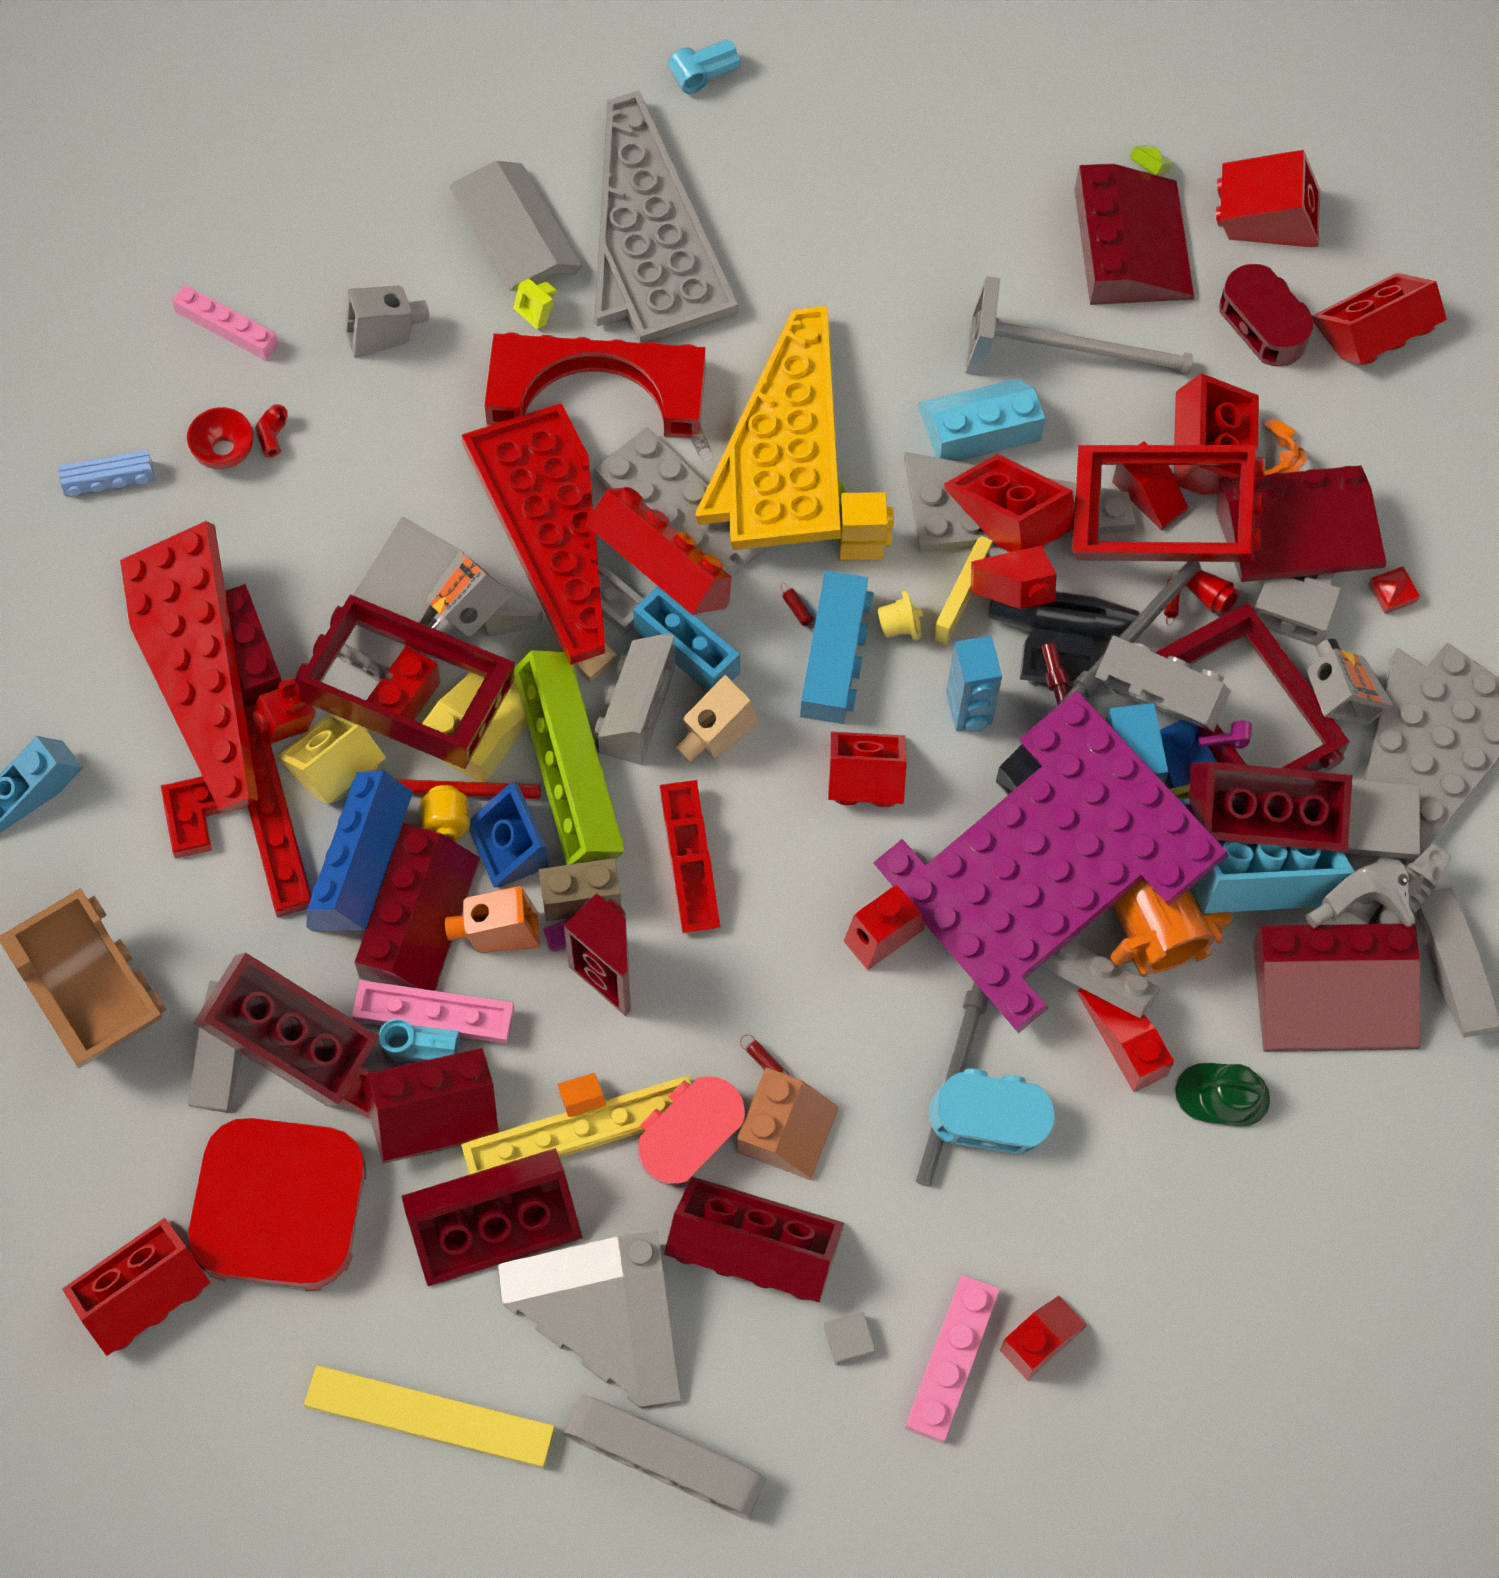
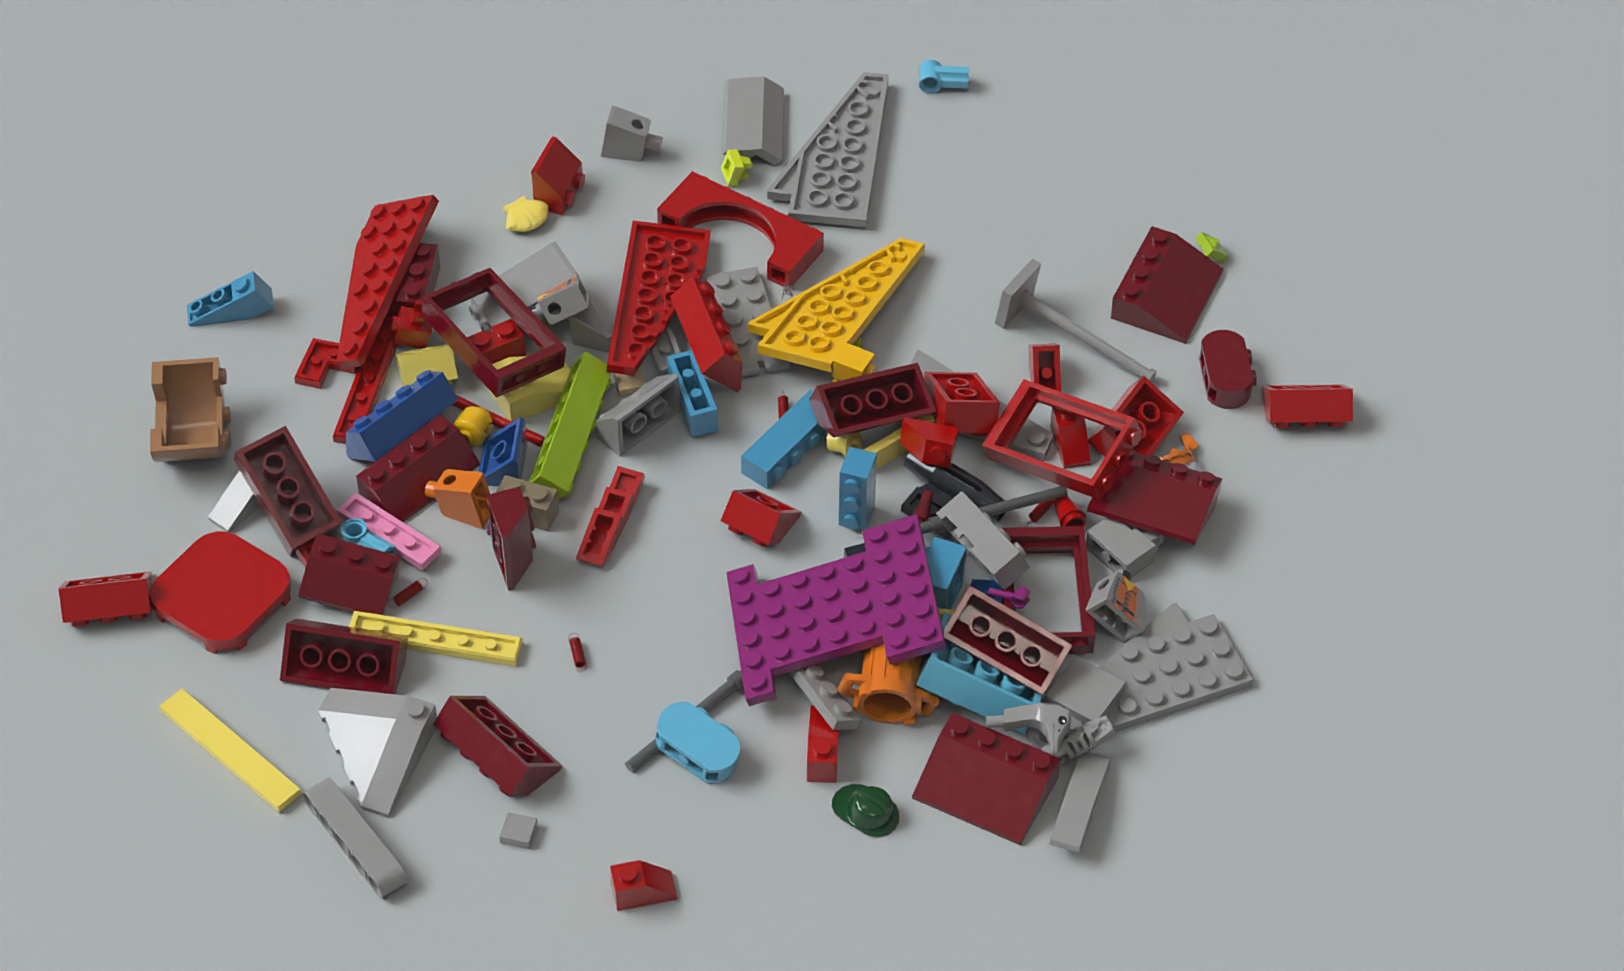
camera: 30 degrees right, 15 degrees down
(106, 473) = (401, 156): light blue piece -> none
(216, 426) = (482, 157): red piece -> none
(225, 322) = (532, 103): bright pink piece -> none
(269, 427) = (518, 172): red arm -> none
(317, 484) = (525, 214): none -> light yellow animal
(332, 419) = (557, 177): none -> red slope
(509, 1083) = (408, 593): none -> red piece
(581, 1095) = (446, 617): orange tile -> none
(689, 1129) = (498, 663): coral brick -> none
(717, 721) = (680, 446): tan torso -> none
(786, 1124) = (562, 690): nougat slope -> none
(887, 922) = (705, 606): red torso -> none
(920, 559) = (872, 400): none -> dark red slope
(952, 1359) = (575, 873): bright pink plate -> none
(983, 420) = (983, 353): medium azure slope -> none
(1069, 410) = (1045, 365): none -> red slope
(1270, 200) = (1279, 303): red slope -> none
(1394, 589) = (1200, 569): red tile -> none

